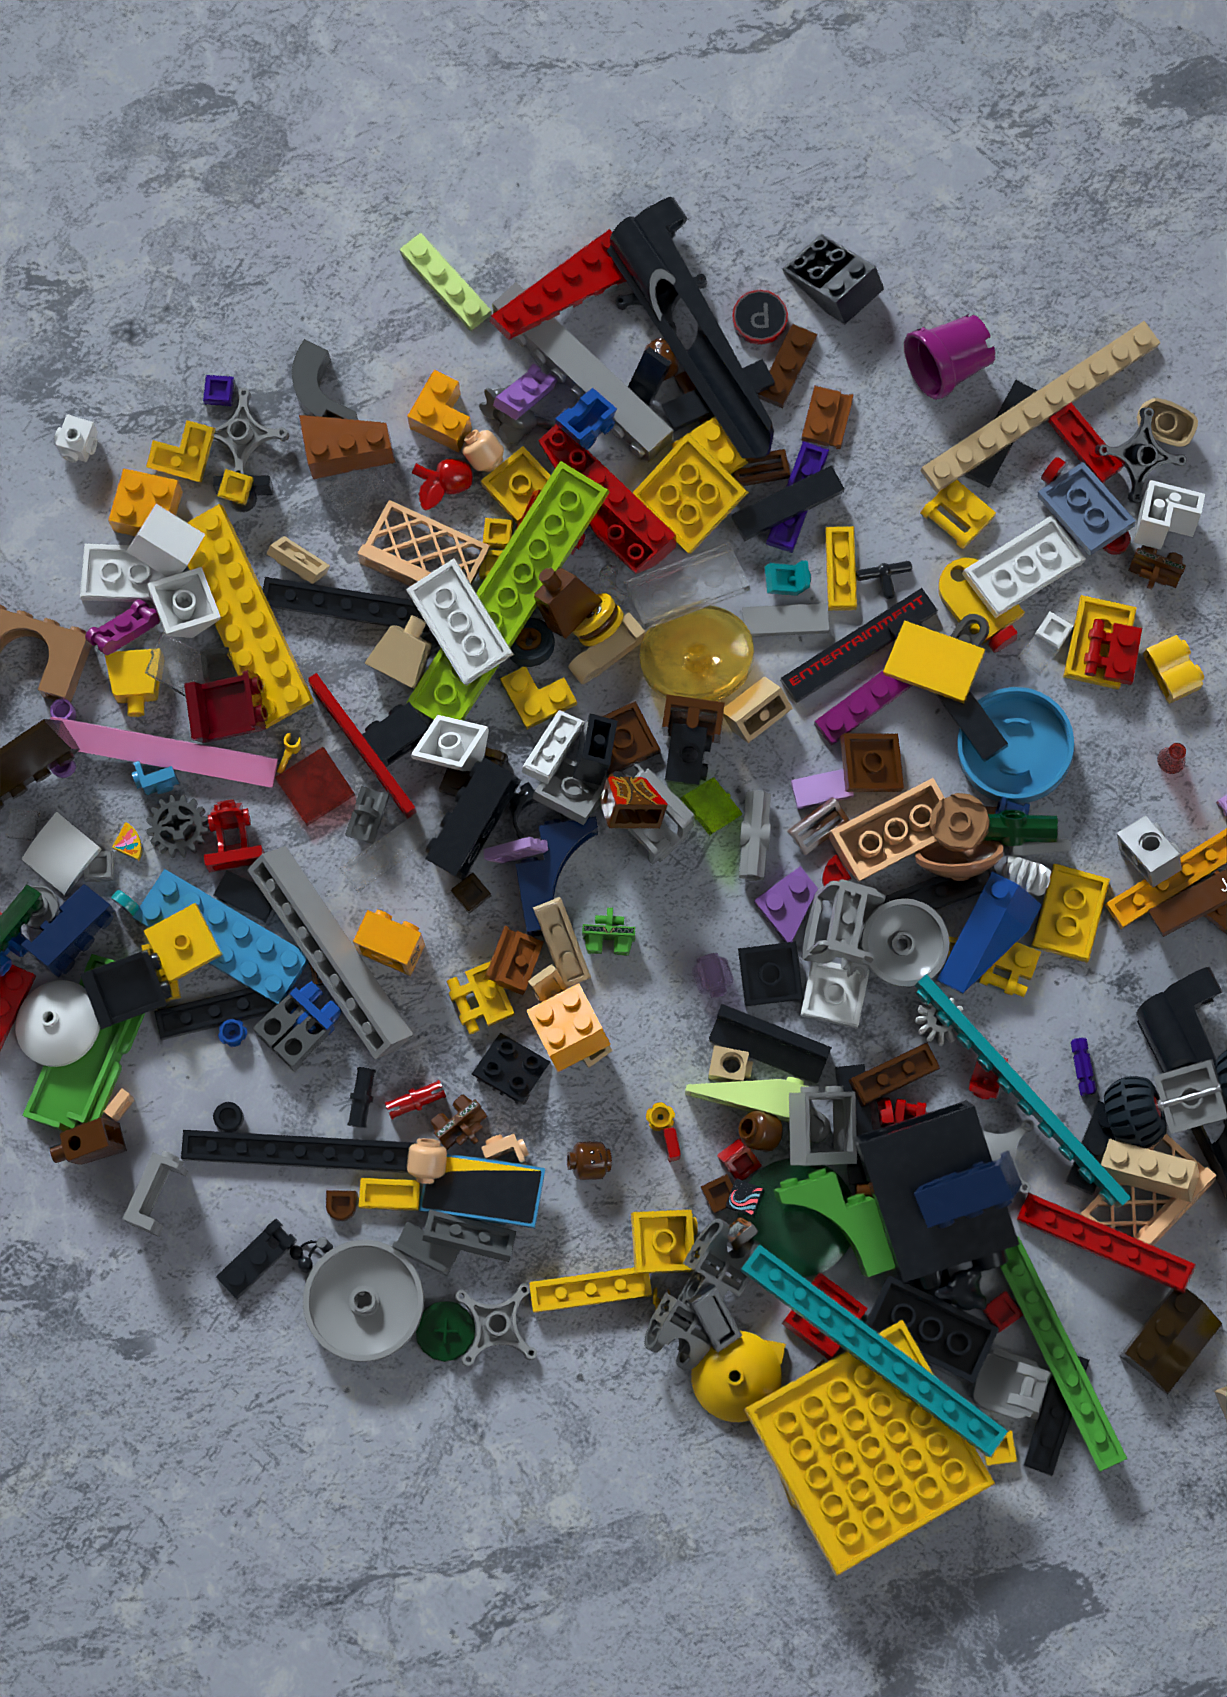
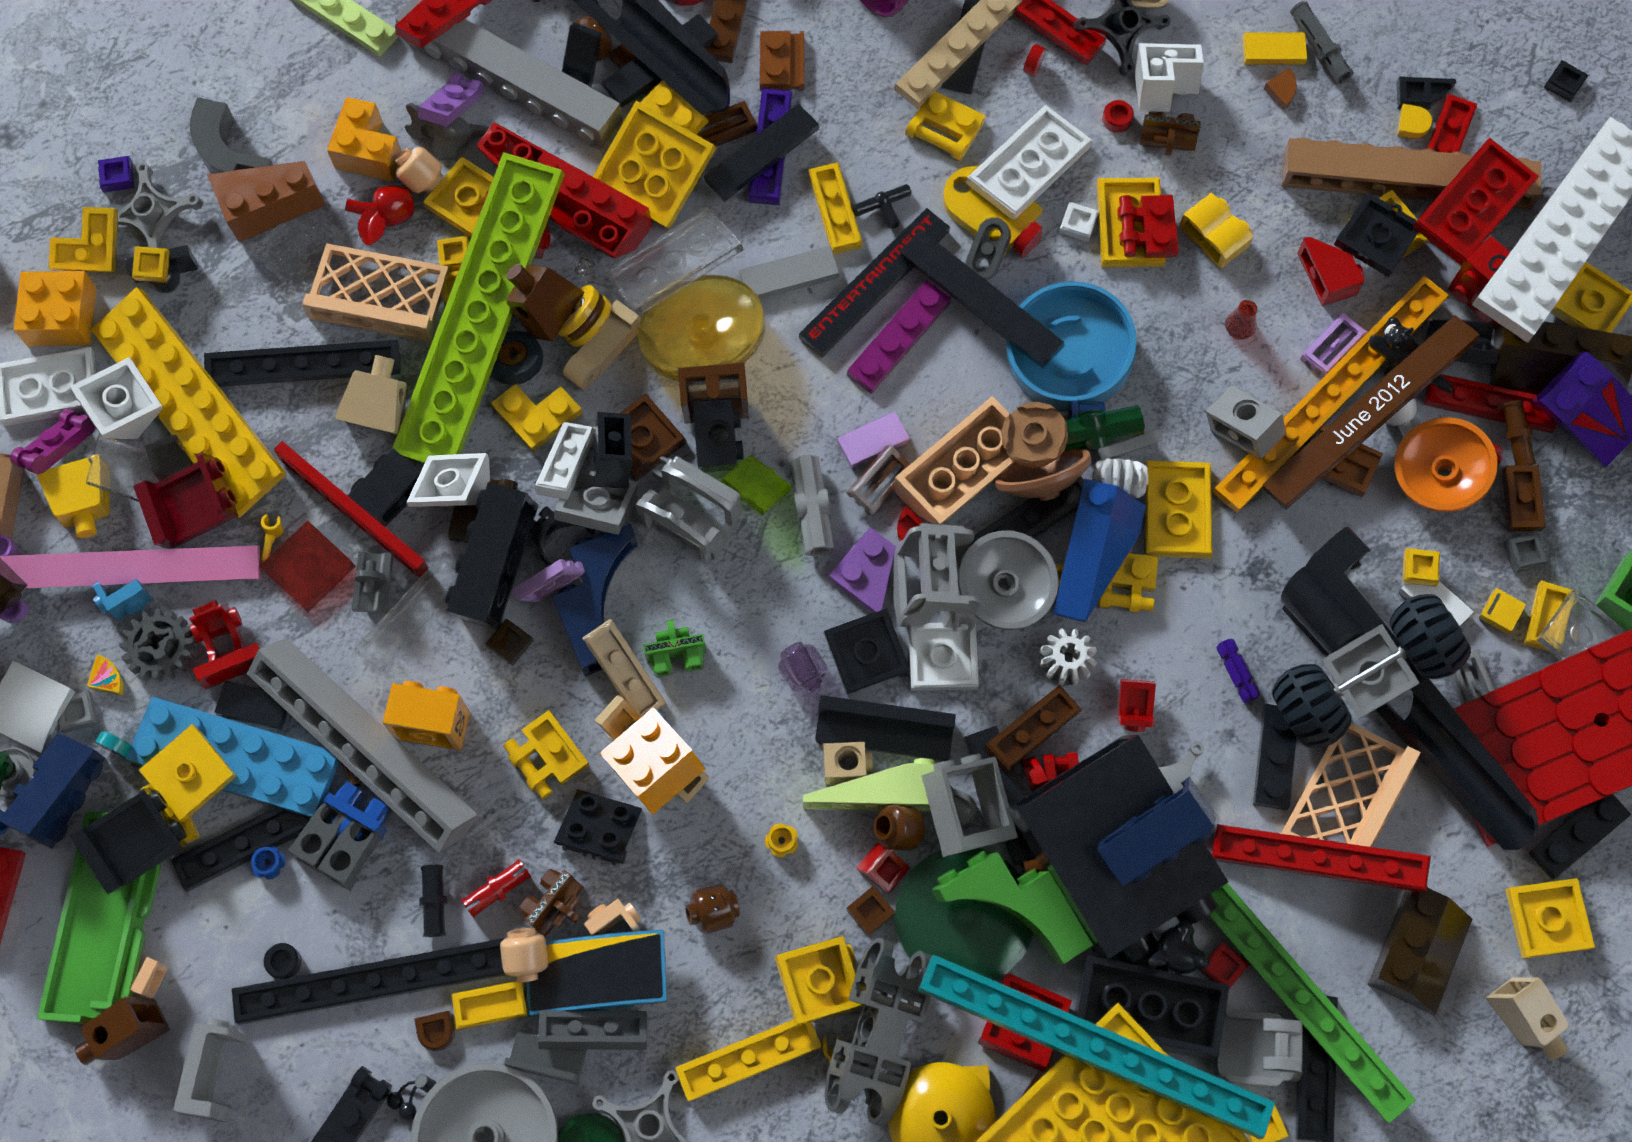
camera: 15 degrees left, 5 degrees down
(70, 1031) = (70, 912): white dish -> none
(165, 542) = (81, 338): white slope -> none
(298, 560) = (238, 328): tan plate -> none
(459, 622) = (431, 349): white tile -> none
(514, 960) = (574, 703): dark orange plate -> none
(588, 419) = (525, 110): blue cylinder -> none
(631, 802) = (667, 493): reddish brown torso -> none
(672, 1144) = (802, 867): red tile -> none
(714, 1318) = (900, 1055): black tile -> none
(740, 1233) = (906, 948): dark brown tile -> none
(745, 1198) = (901, 908): tile -> none
(756, 709) = (781, 370): tan brick -> none
(787, 579) = (781, 230): teal bracket -> none
(871, 762) = (920, 398): reddish brown plate -> none
(934, 661) = (961, 275): yellow tile -> none
(1029, 1101) = (1191, 719): teal plate -> none
(1037, 655) = (1068, 249): clear tile -> none
(1086, 508) = (1080, 89): sand blue plate -> none
(1151, 1170) = (1346, 764): tan brick -> none

